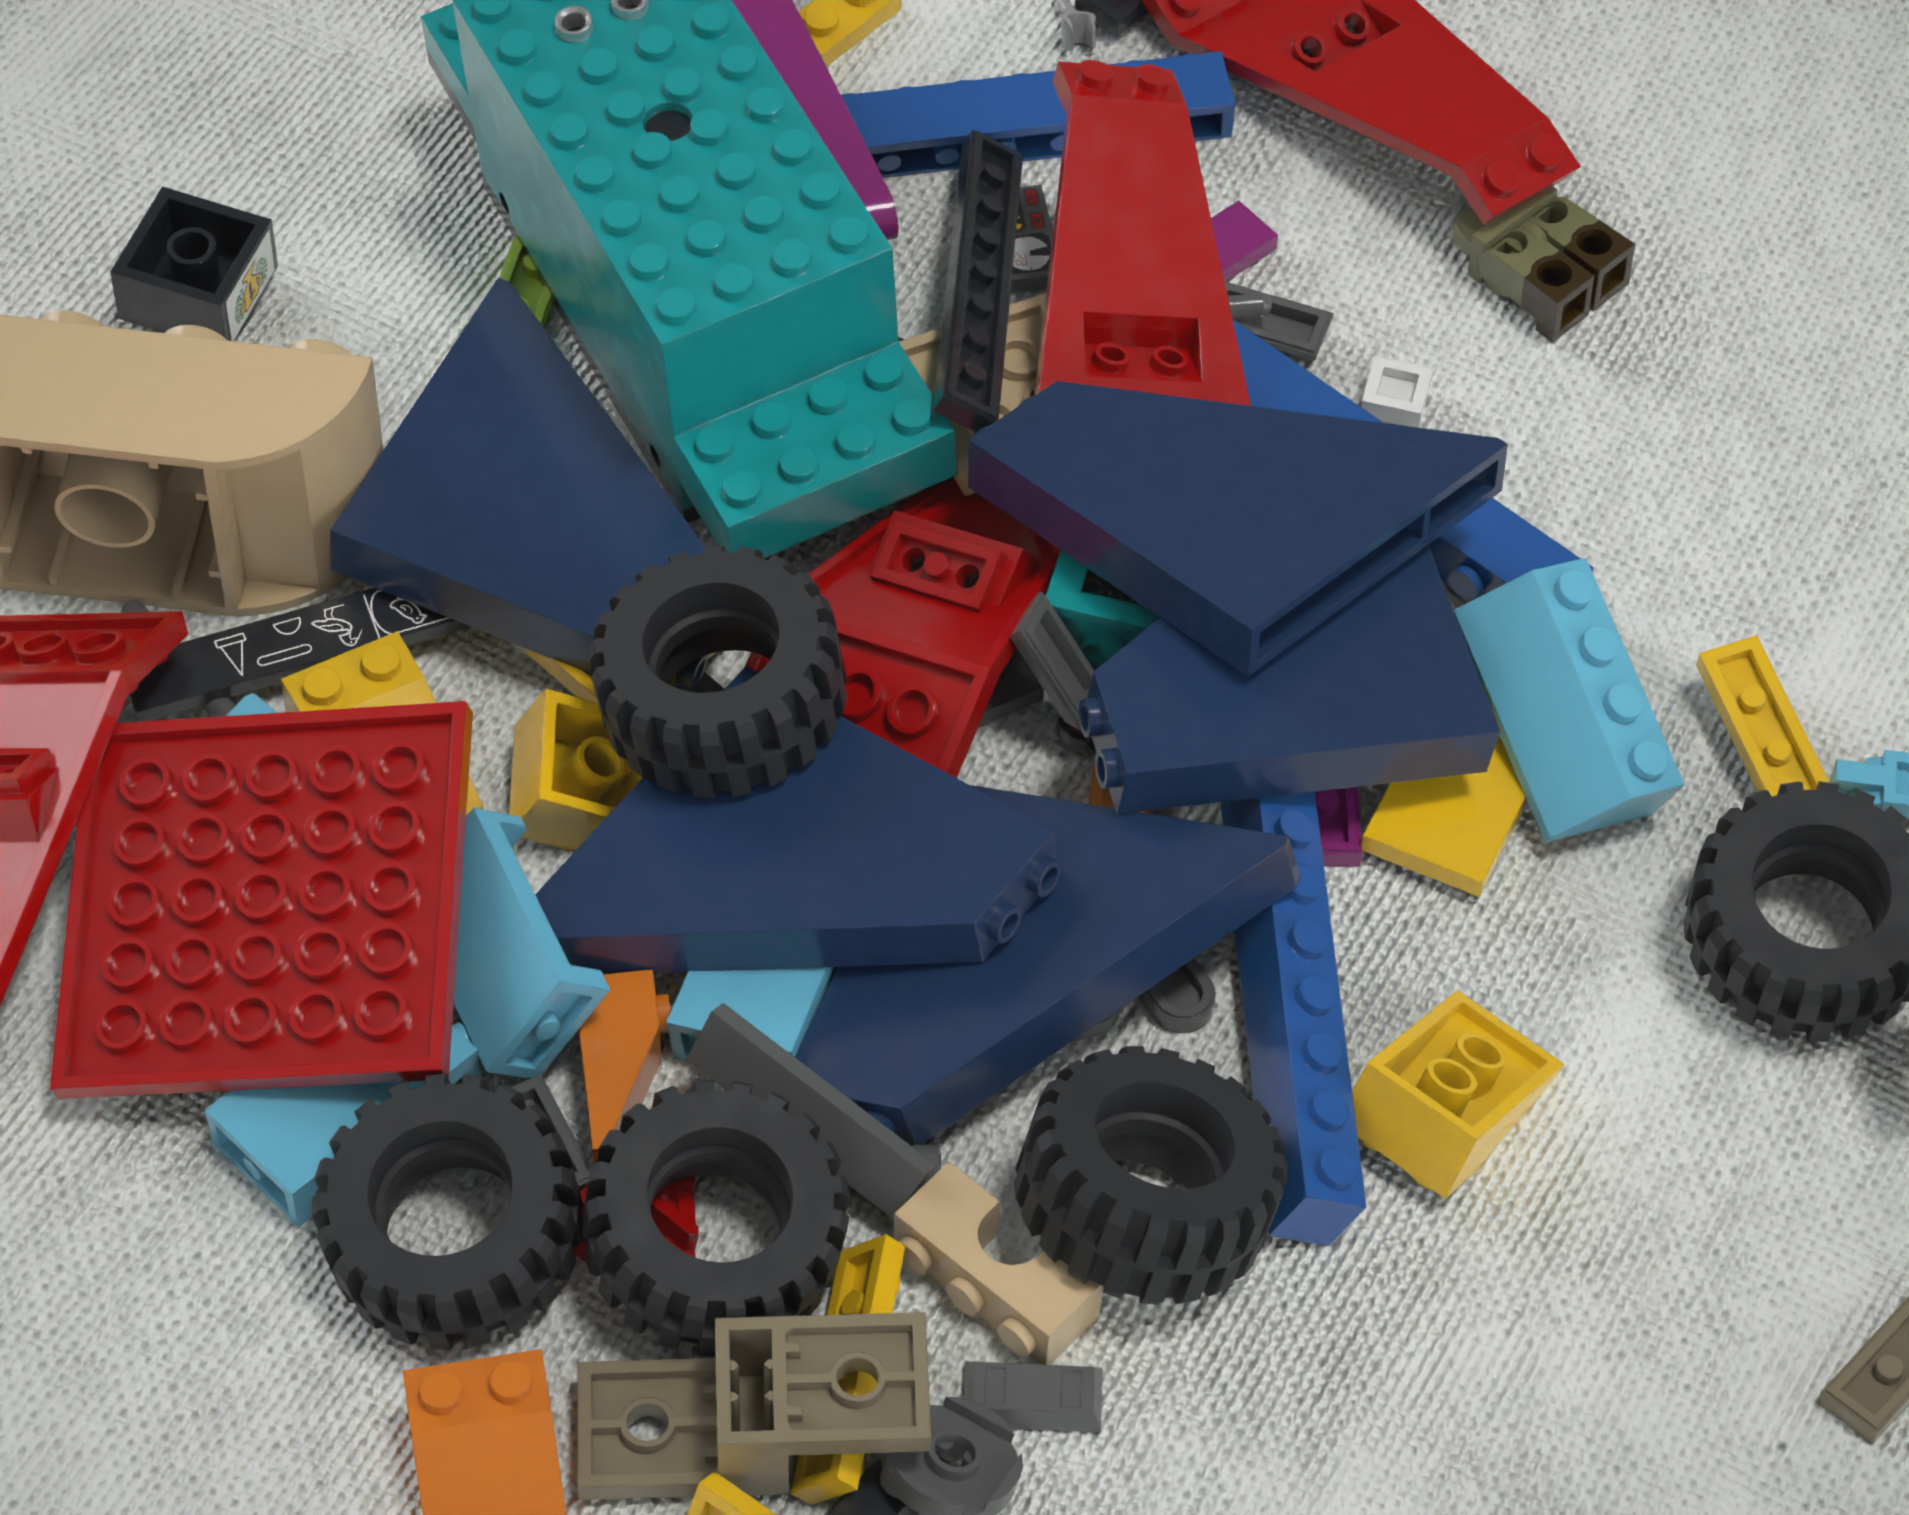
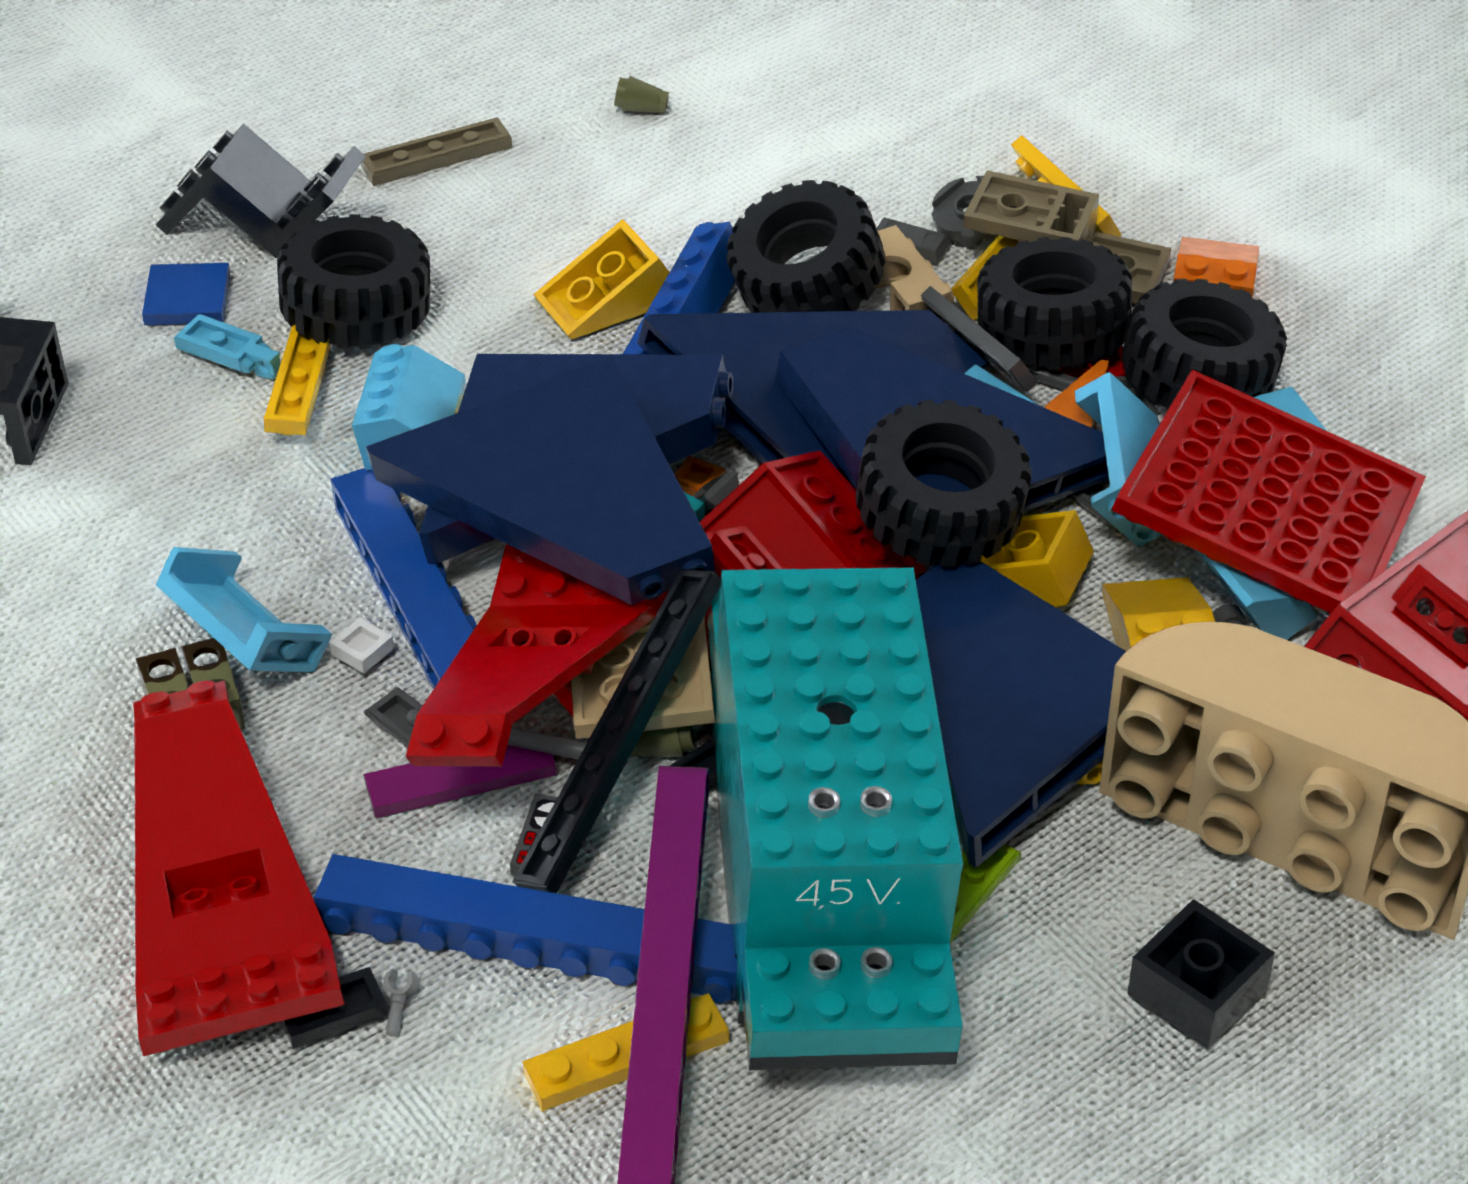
camera: 155 degrees left, 10 degrees down
(1560, 348) = (206, 590): none -> medium azure panel

